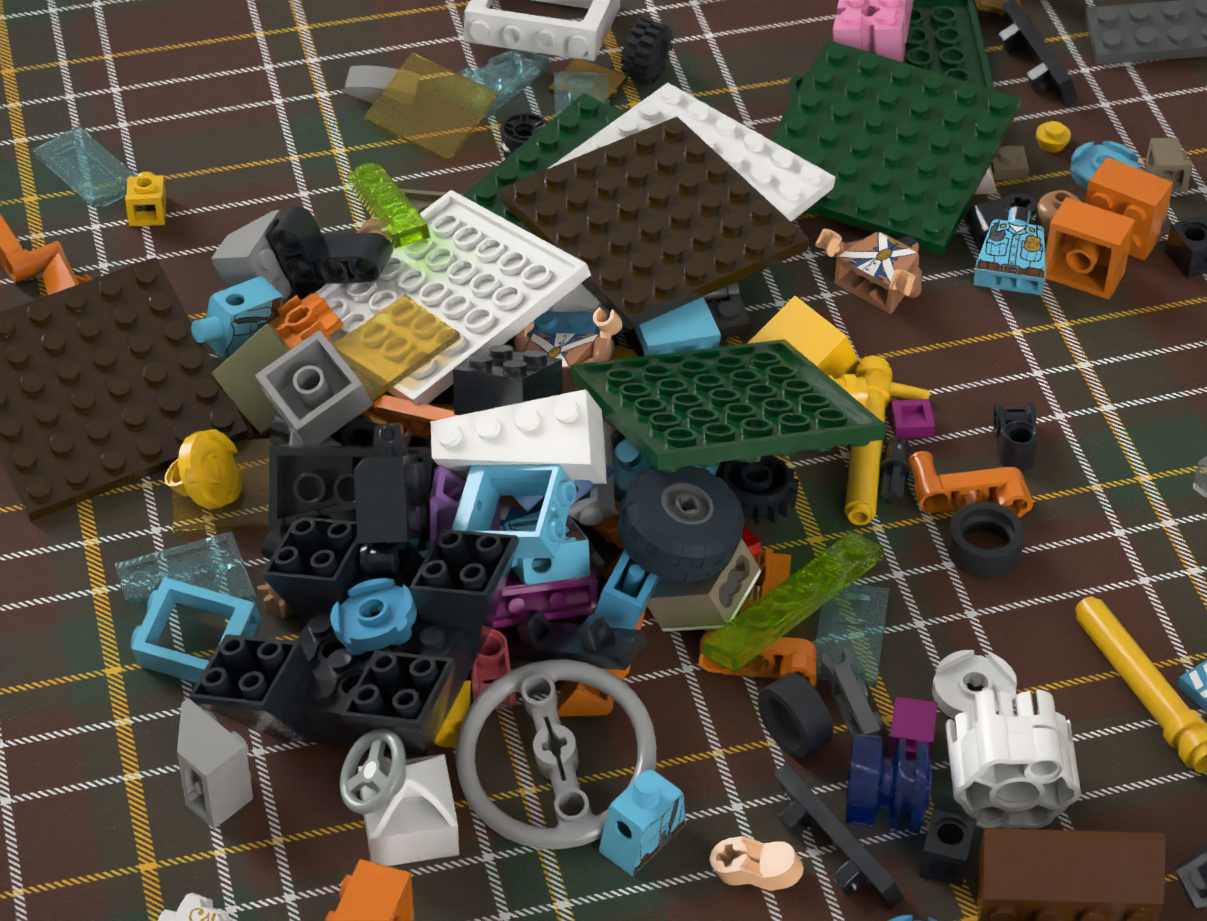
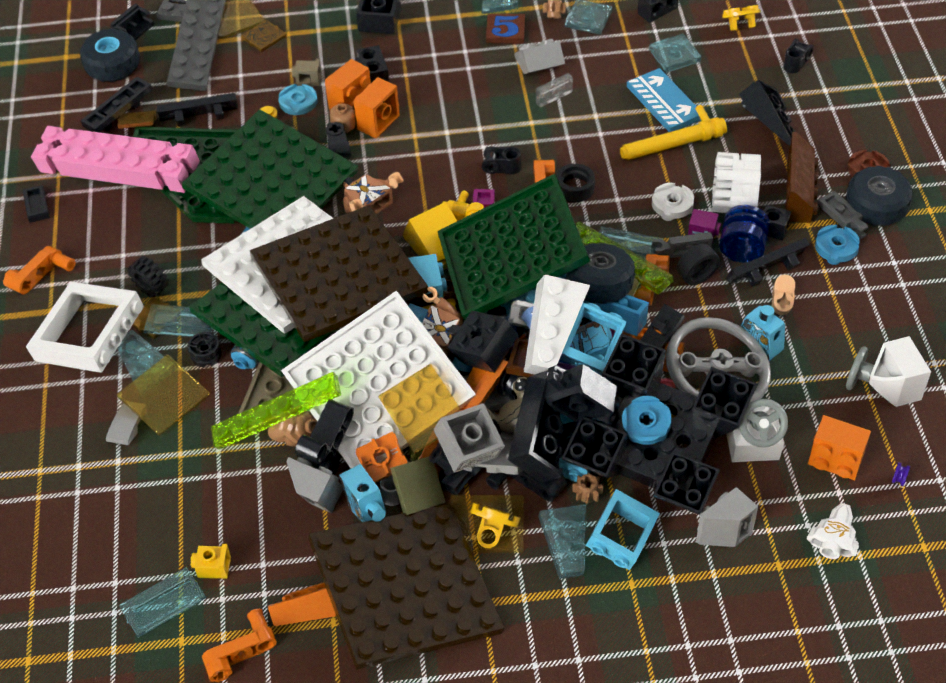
camera: 80 degrees left, 5 degrees up
(1013, 255) = (370, 139): medium azure torso -> none

